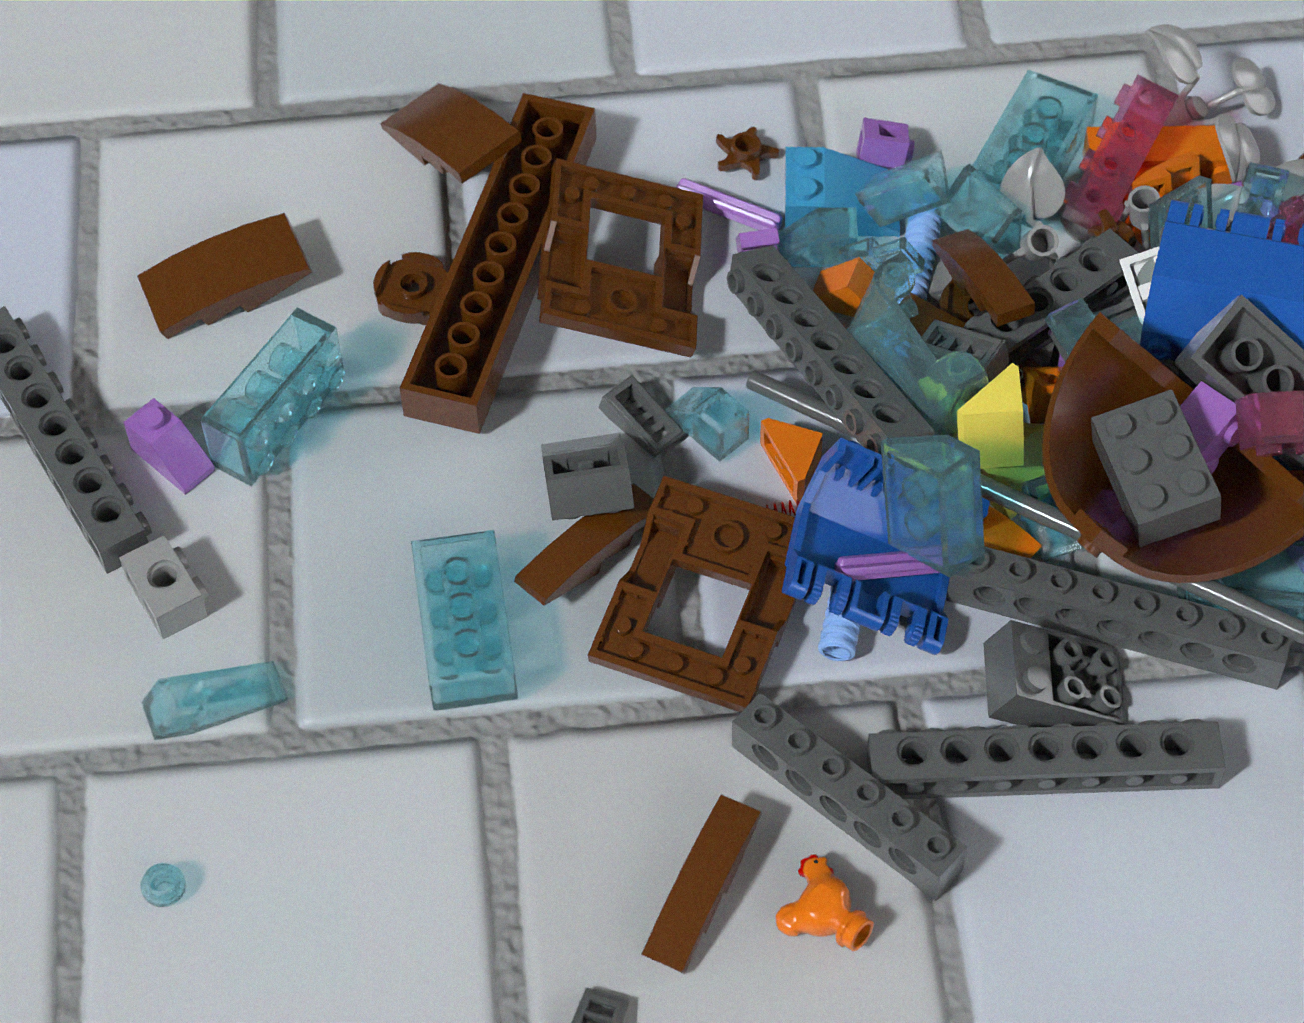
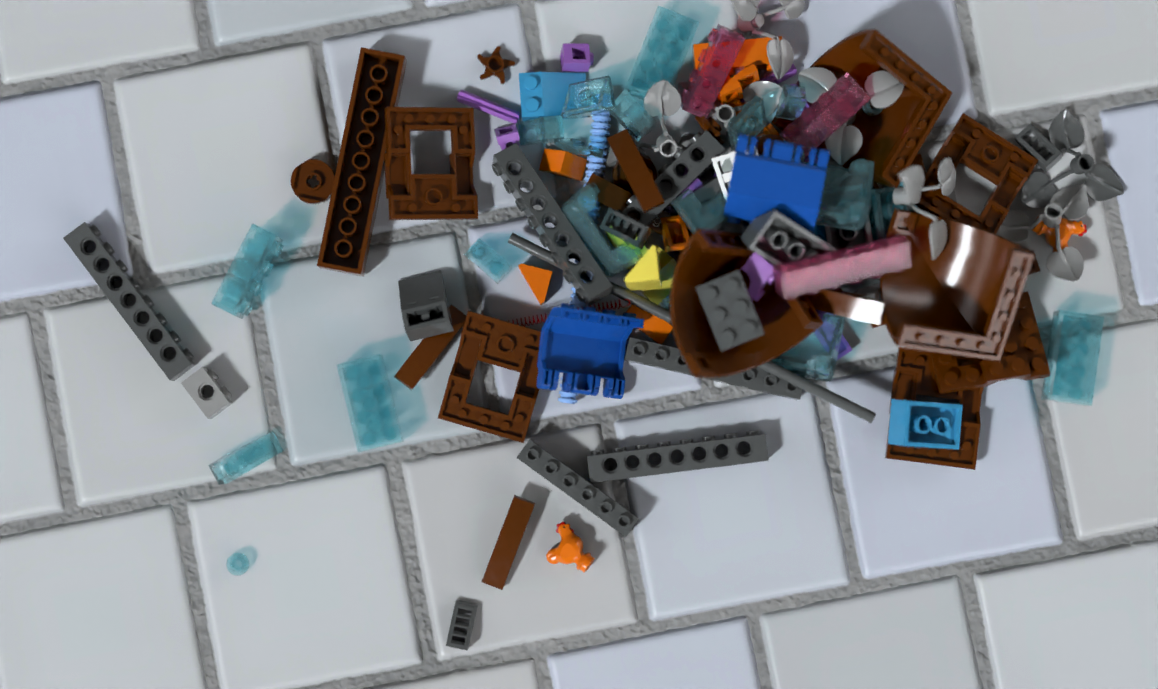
camera: 10 degrees left, 30 degrees up
(167, 446) = (193, 303): medium lavender slope -> none
(224, 273) = (204, 182): reddish brown slope -> none
(451, 132) = (320, 72): reddish brown slope -> none
(641, 399) = (450, 247): dark grey slope -> none
(881, 566) = (594, 354): medium lavender axle -> none
(934, 500) = (614, 333): clear light blue slope -> none
(1051, 678) = (681, 409): dark grey slope -> none

